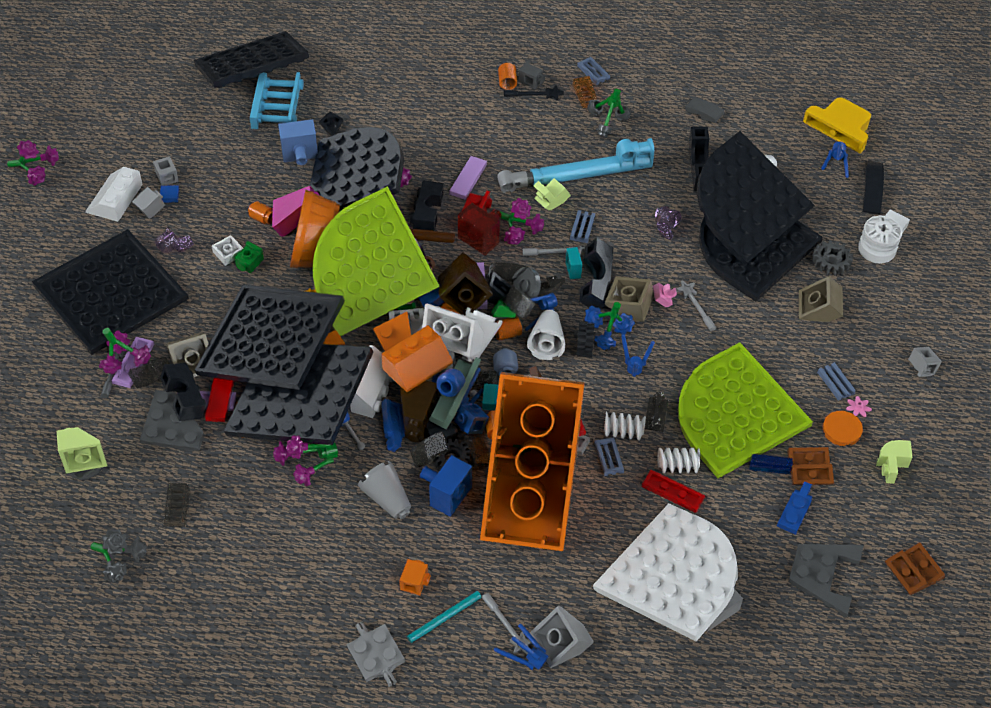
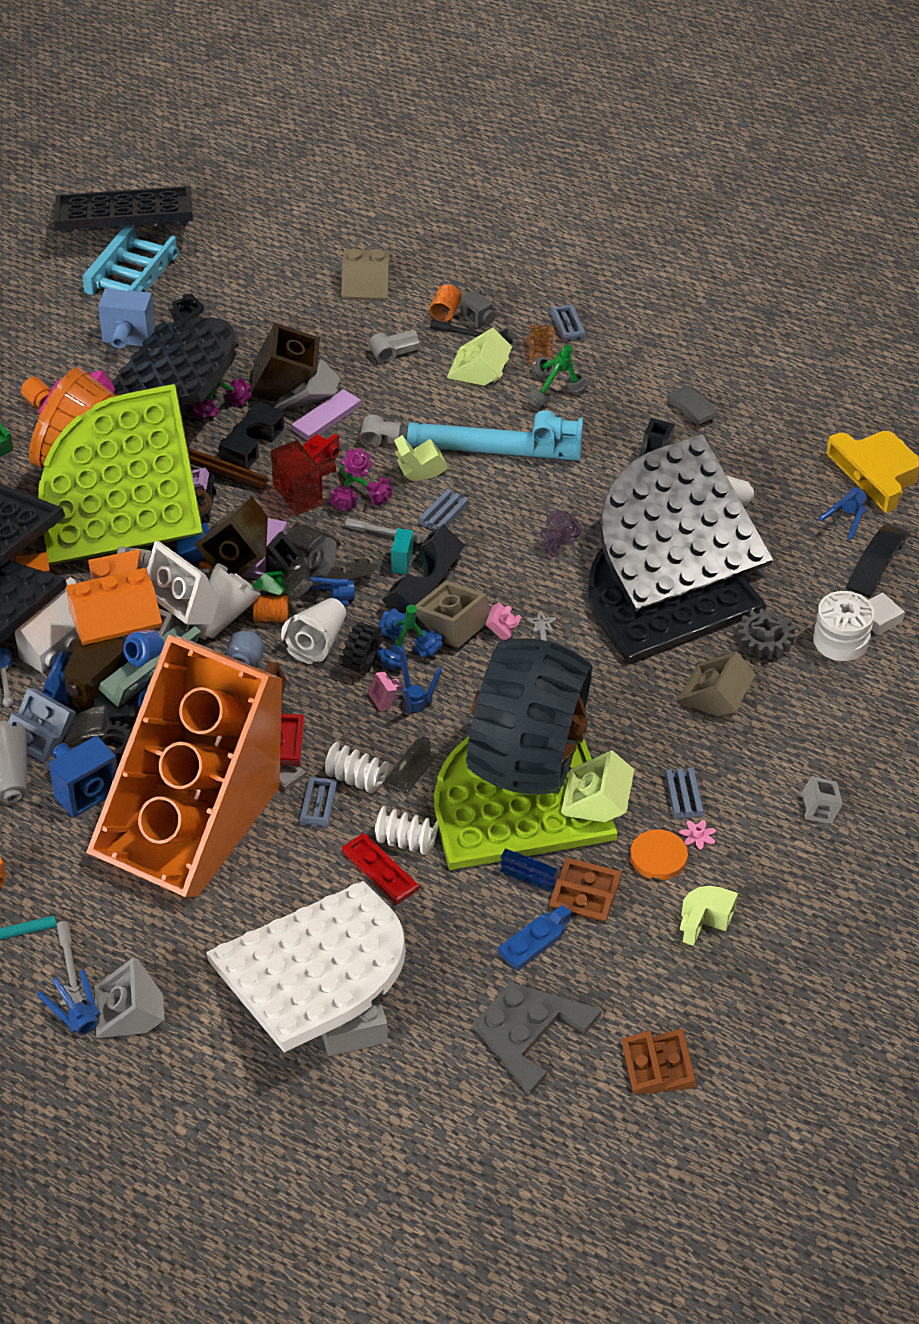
camera: 20 degrees right, 5 degrees down
(399, 451) = (44, 723): none -> sand blue slope
(427, 147) = (284, 362): none -> dark brown slope
(443, 68) = (365, 274): none -> dark tan slope
(446, 160) = (314, 390): none -> light grey slope
(486, 117) = (388, 347): none -> light grey piece
(552, 111) = (481, 359): none -> yellowish green slope
(612, 366) = (384, 690): none -> bright pink tile
(738, 359) = (529, 716): none -> black wheel
(789, 395) = (598, 788): none -> yellowish green slope

